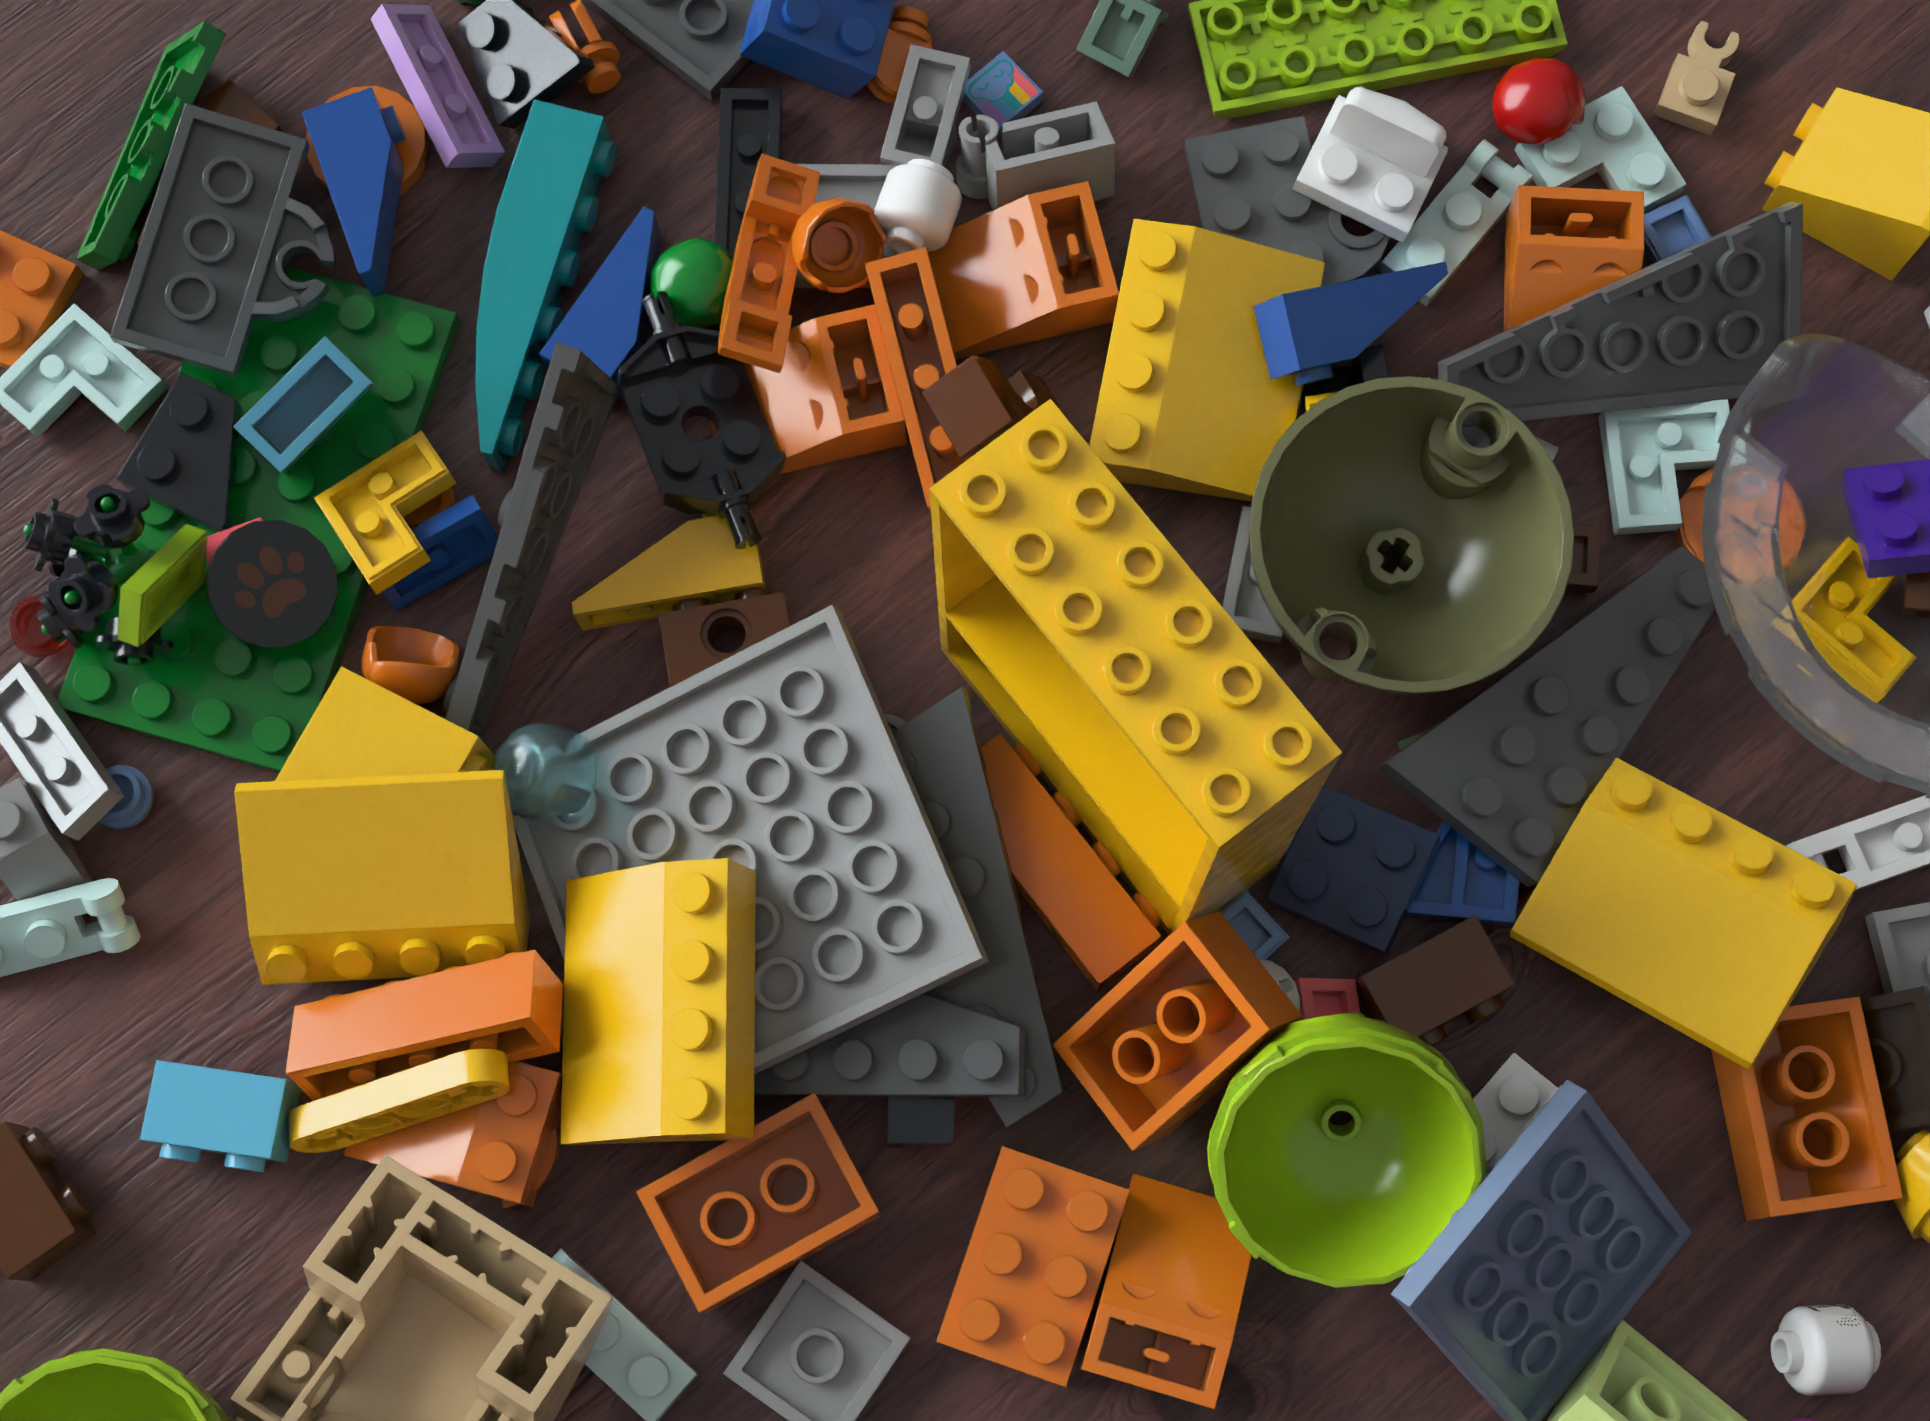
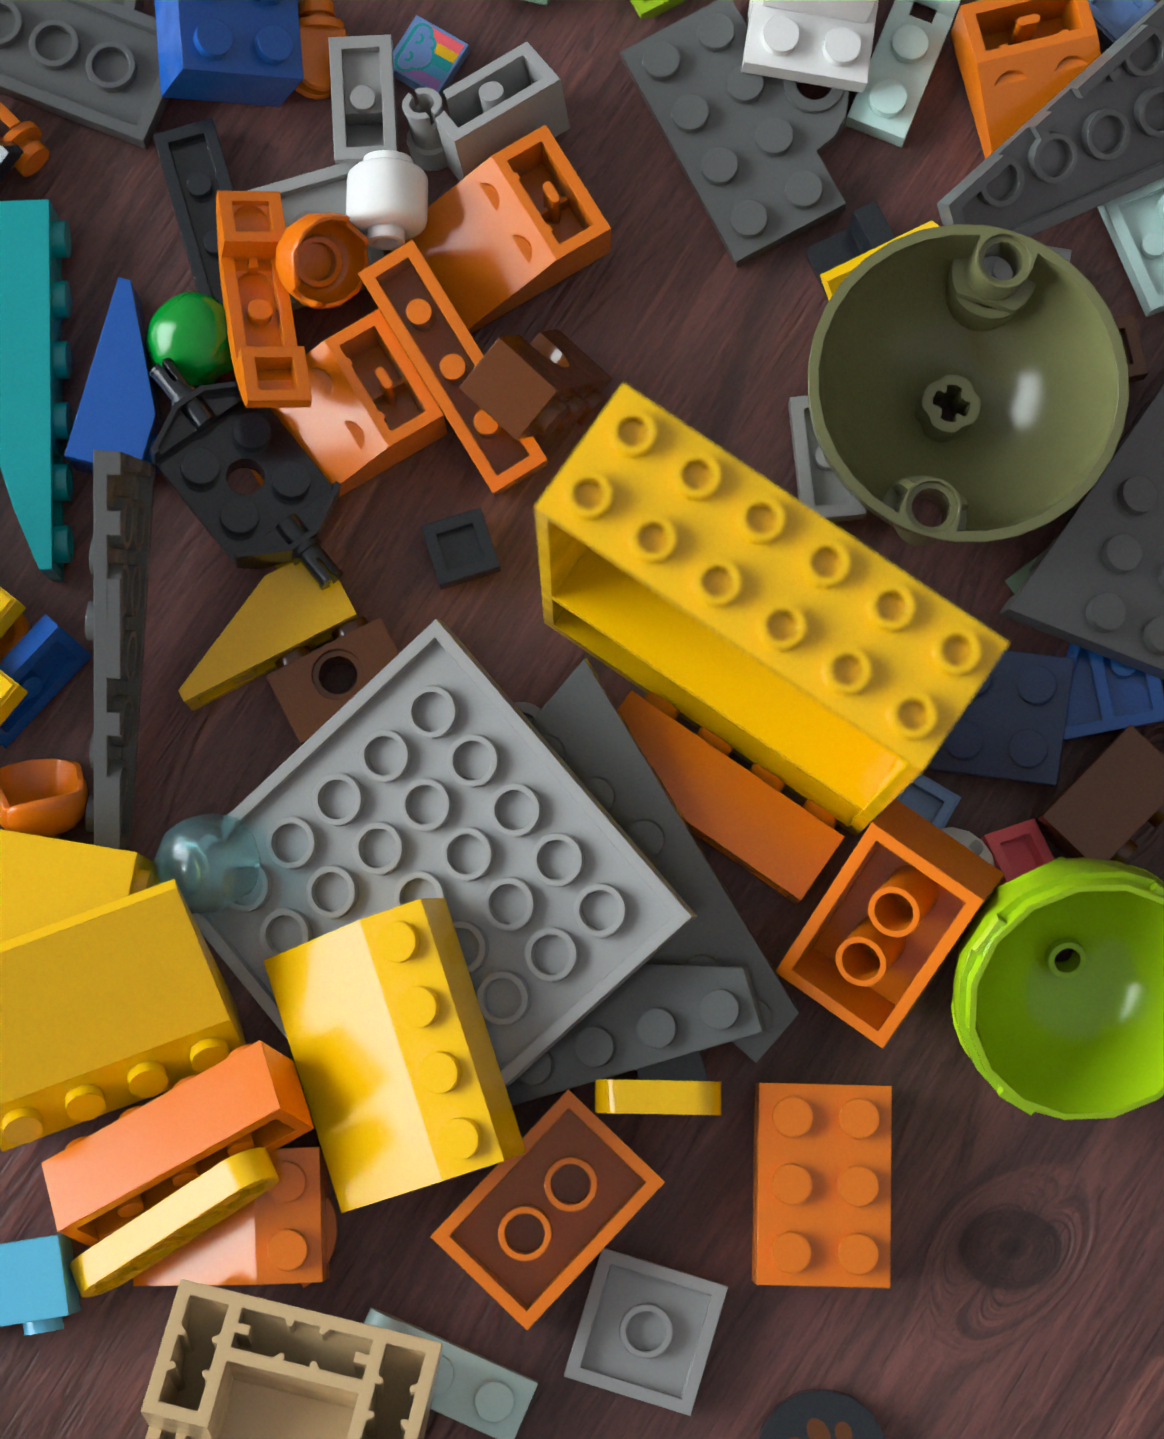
camera: 20 degrees left, 5 degrees up
(883, 554) = (460, 548): none -> black plate
(898, 1127) = (658, 1097): none -> yellow beam
(1169, 1295) = (956, 1171): orange slope -> none
(1186, 365) = (712, 267): yellow slope -> none
(1335, 322) = (829, 194): blue slope -> none

